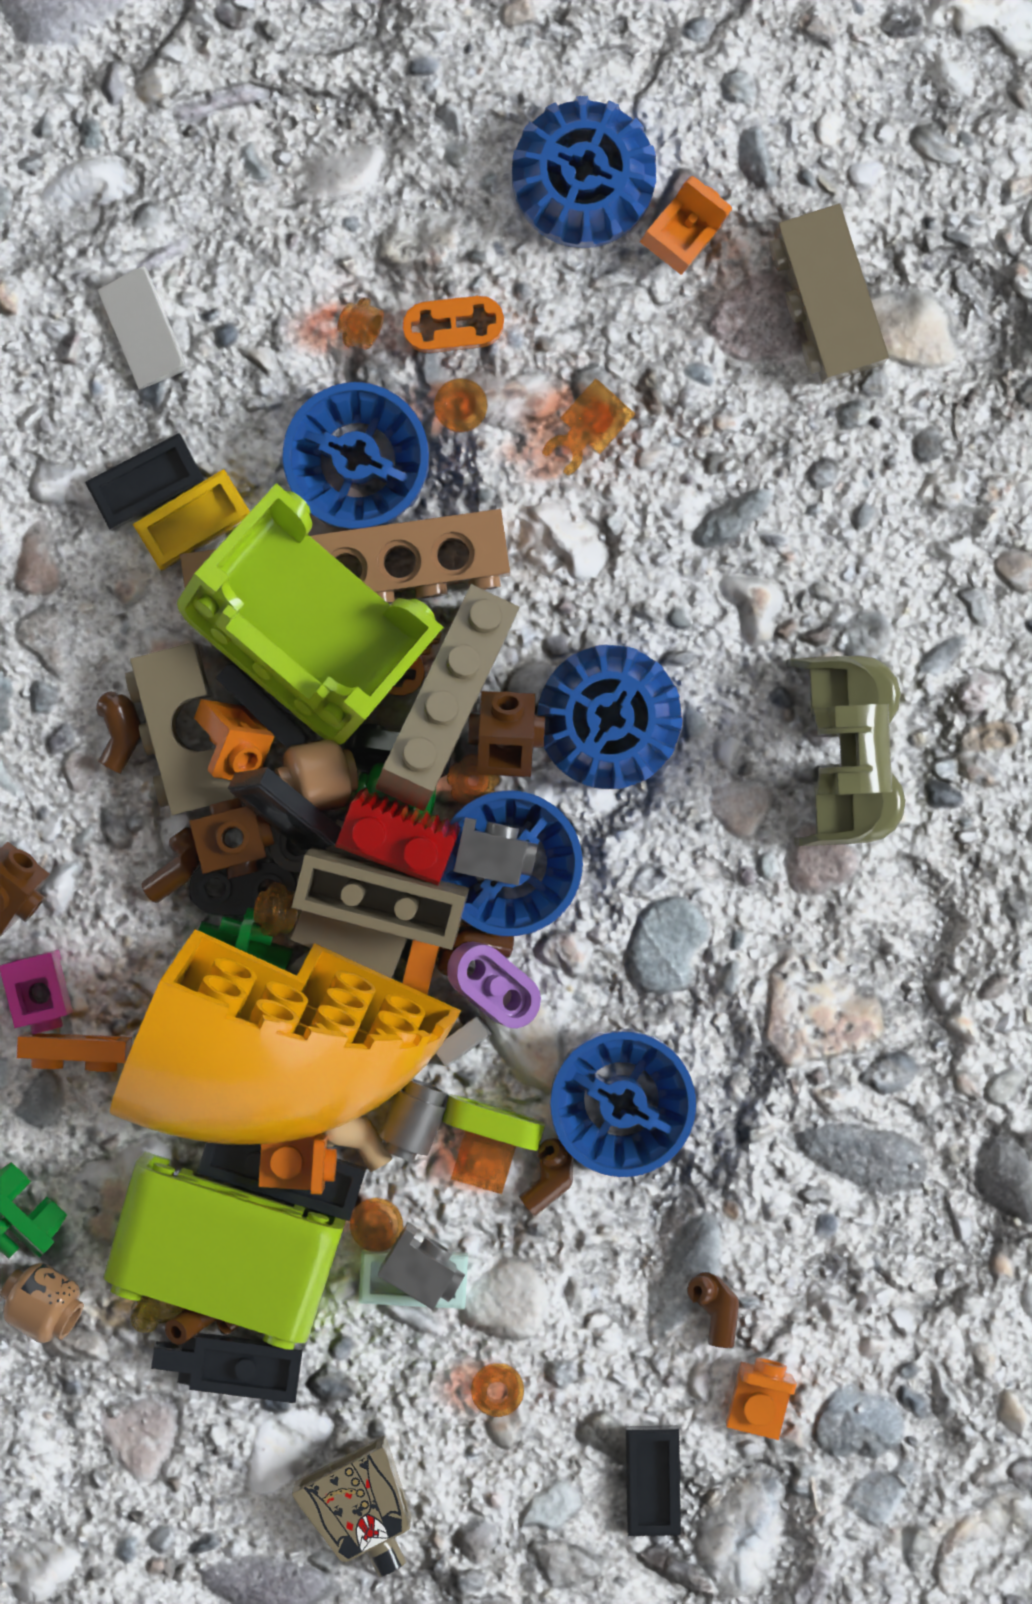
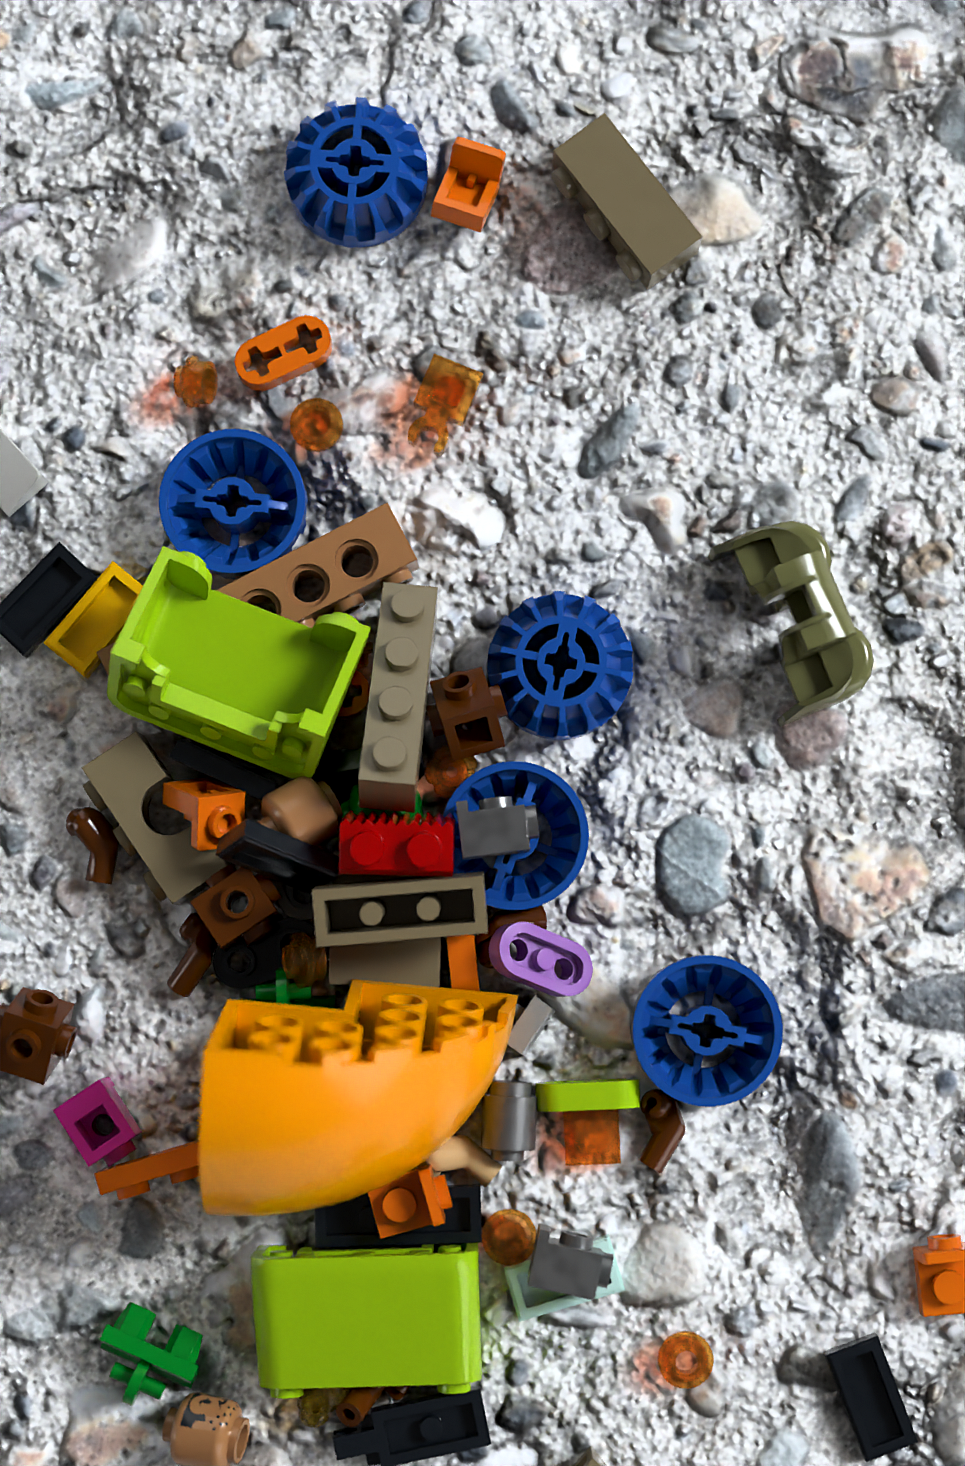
camera: 20 degrees left, 5 degrees down
(720, 1304) = (872, 1196): reddish brown arm -> none

